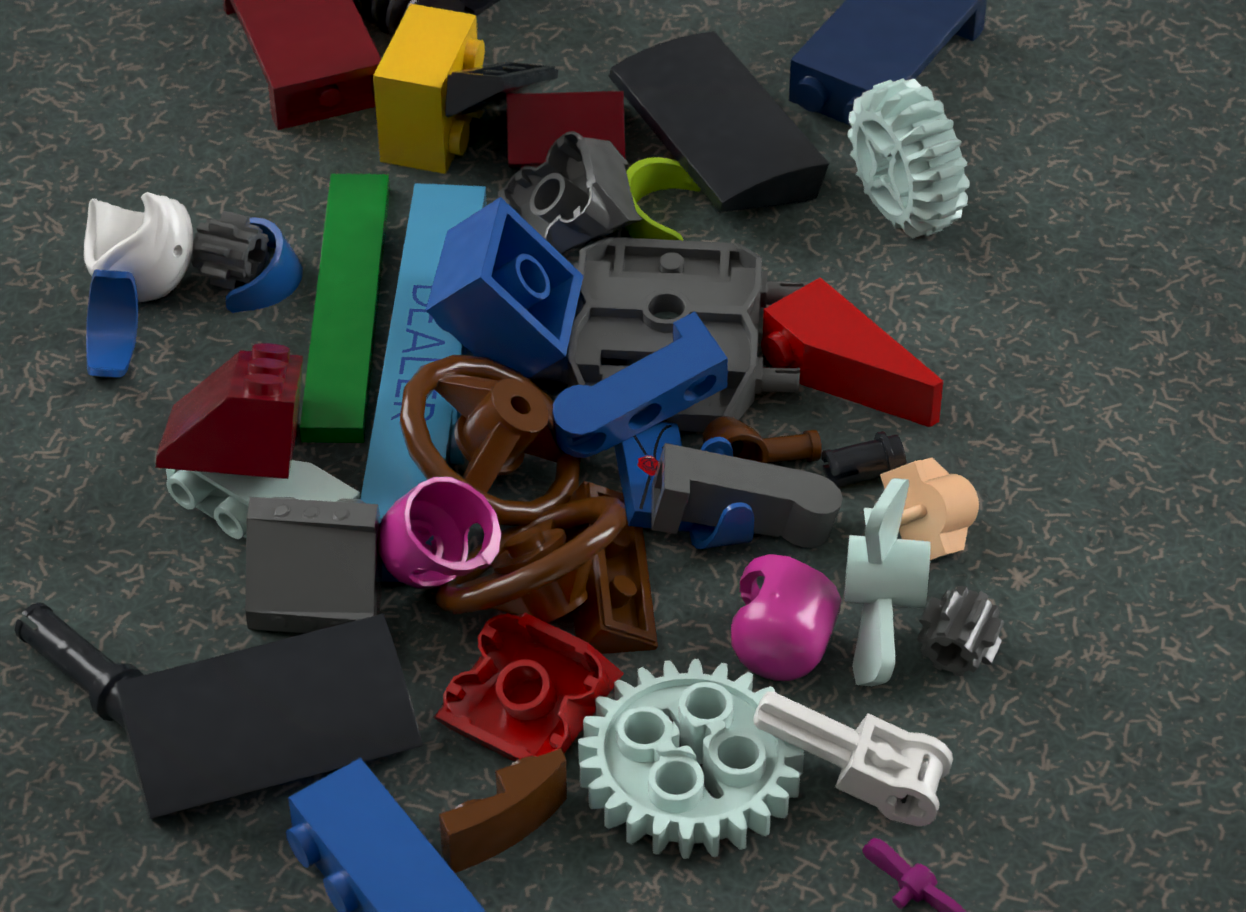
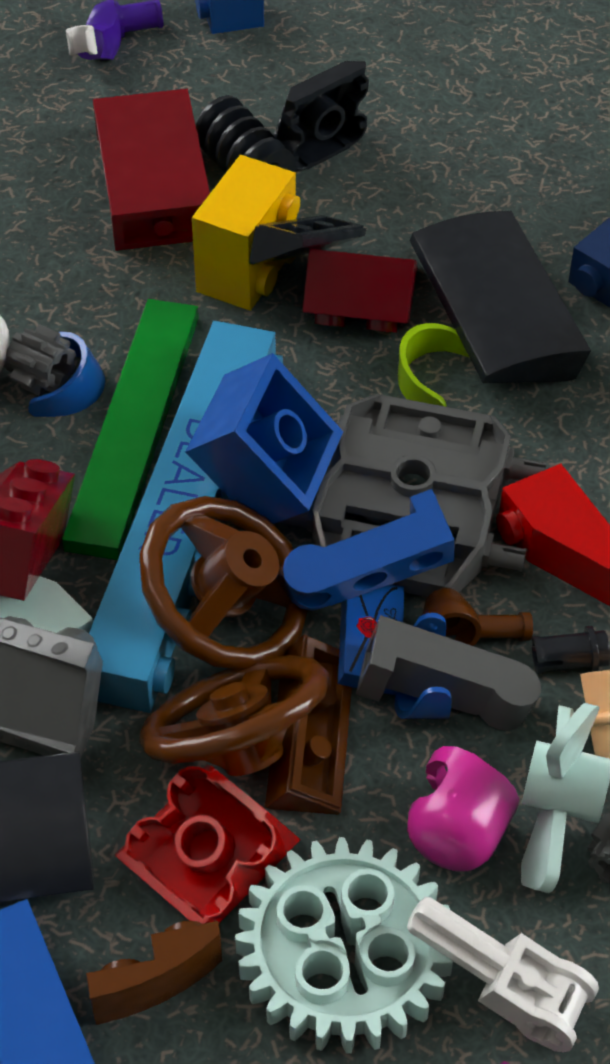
camera: 10 degrees right, 5 degrees up
(447, 512) = (122, 693): dark pink helmet -> none
(575, 193) = (350, 352): dark grey slope -> none

